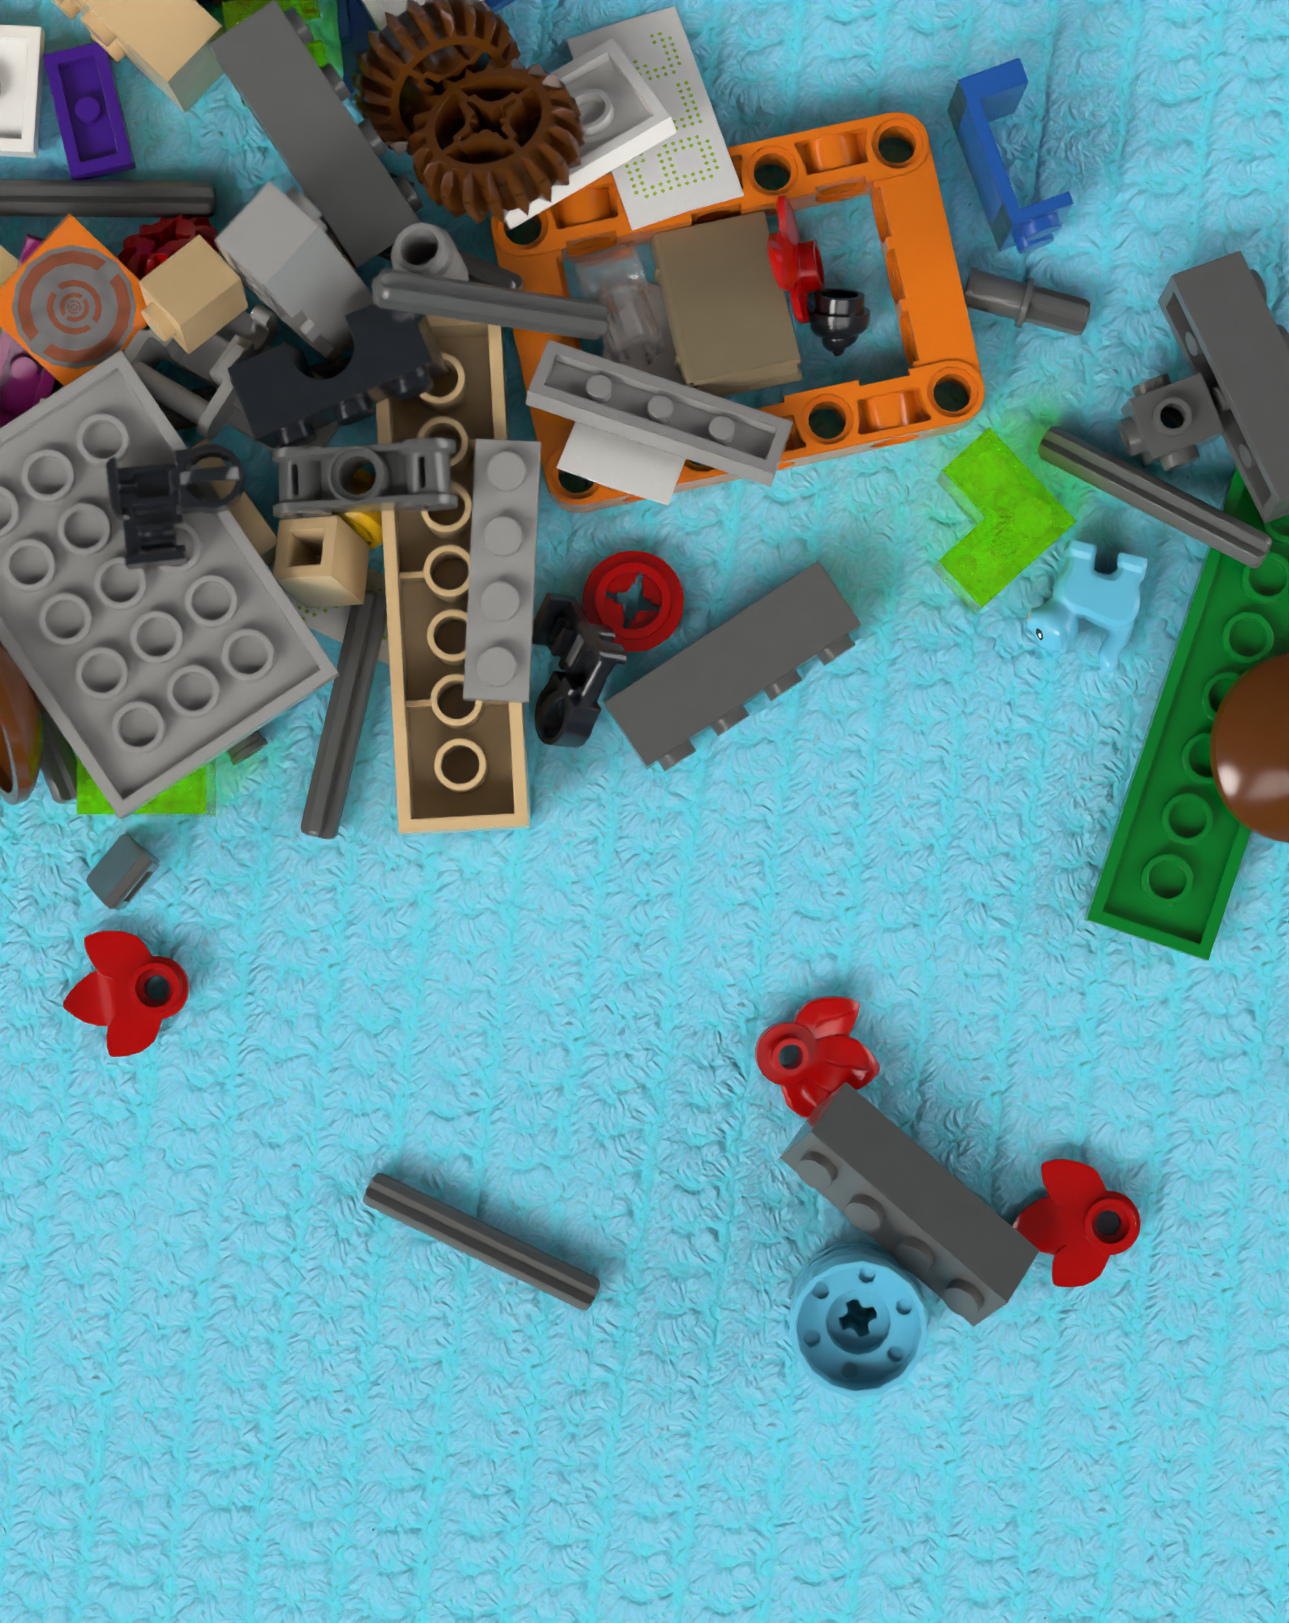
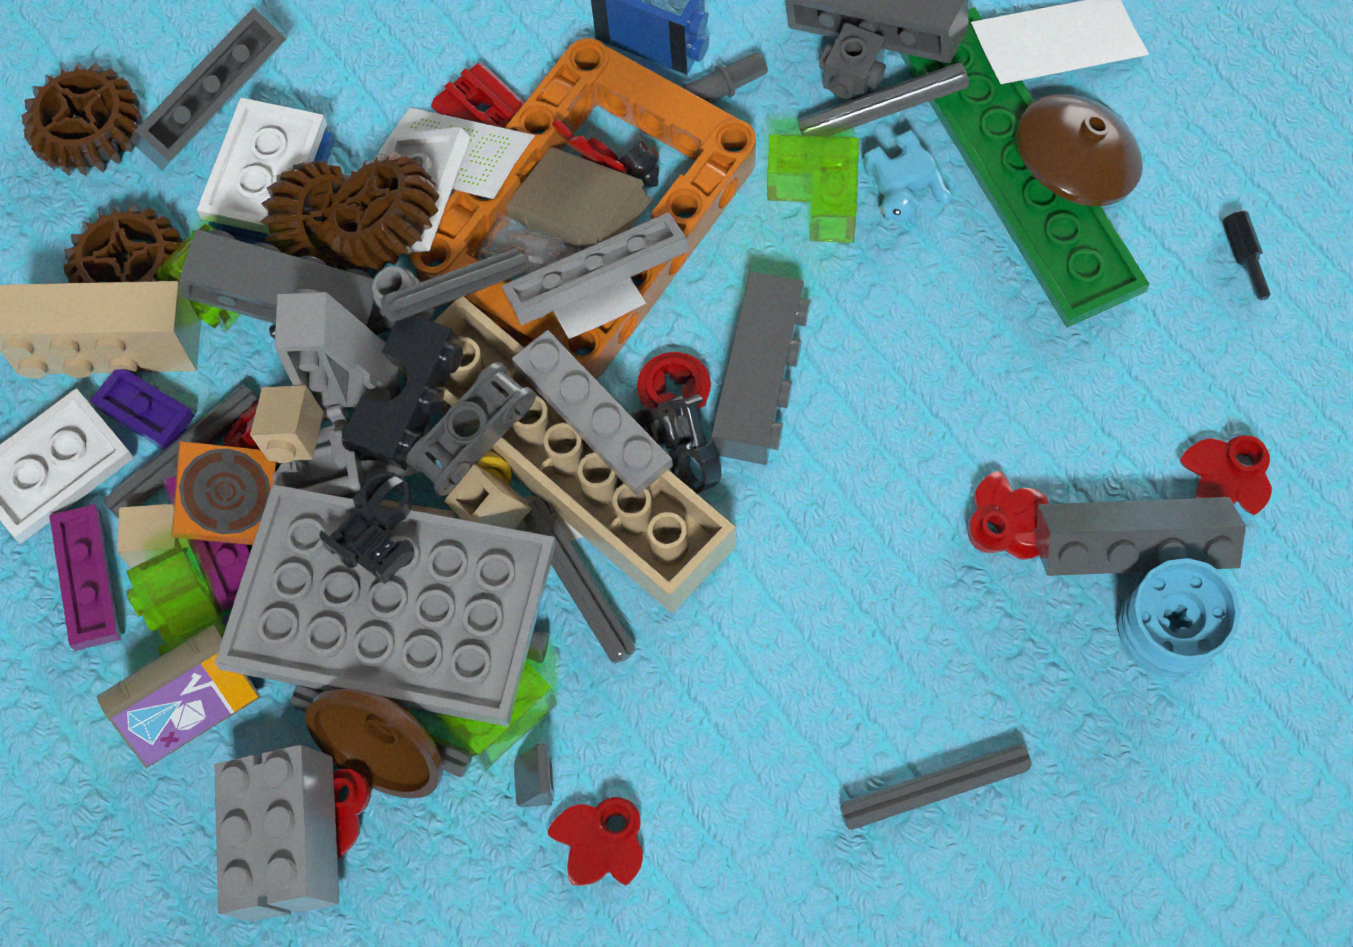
camera: 40 degrees left, 20 degrees down
(772, 62) = (471, 90): none -> red piece

